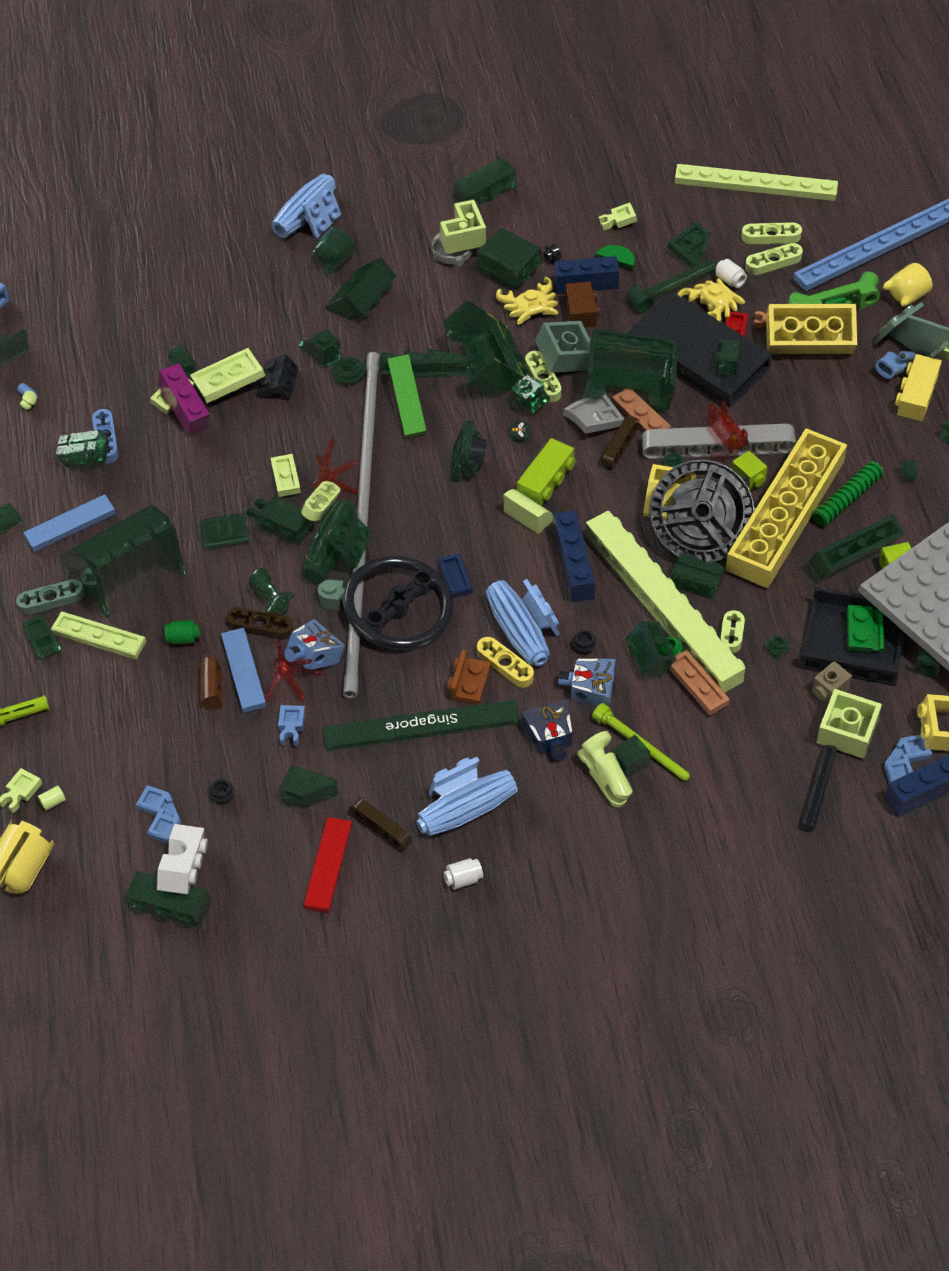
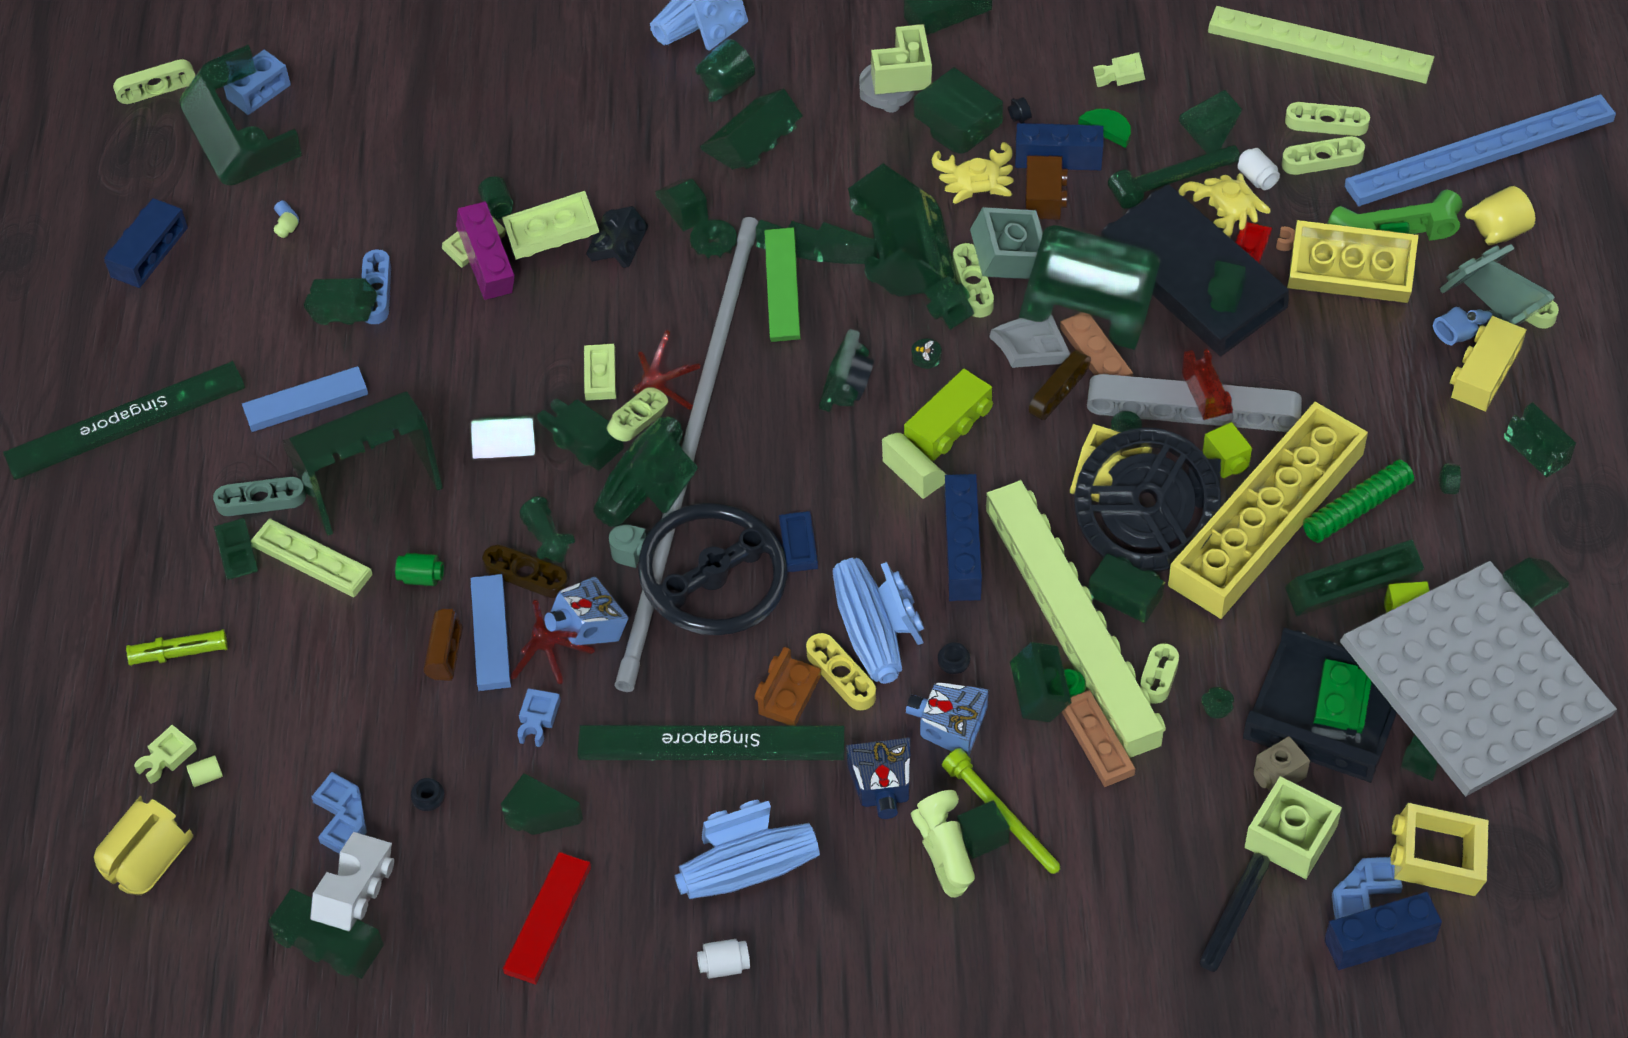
camera: 10 degrees right, 0 degrees up
(380, 824) = (627, 873): dark brown beam -> none

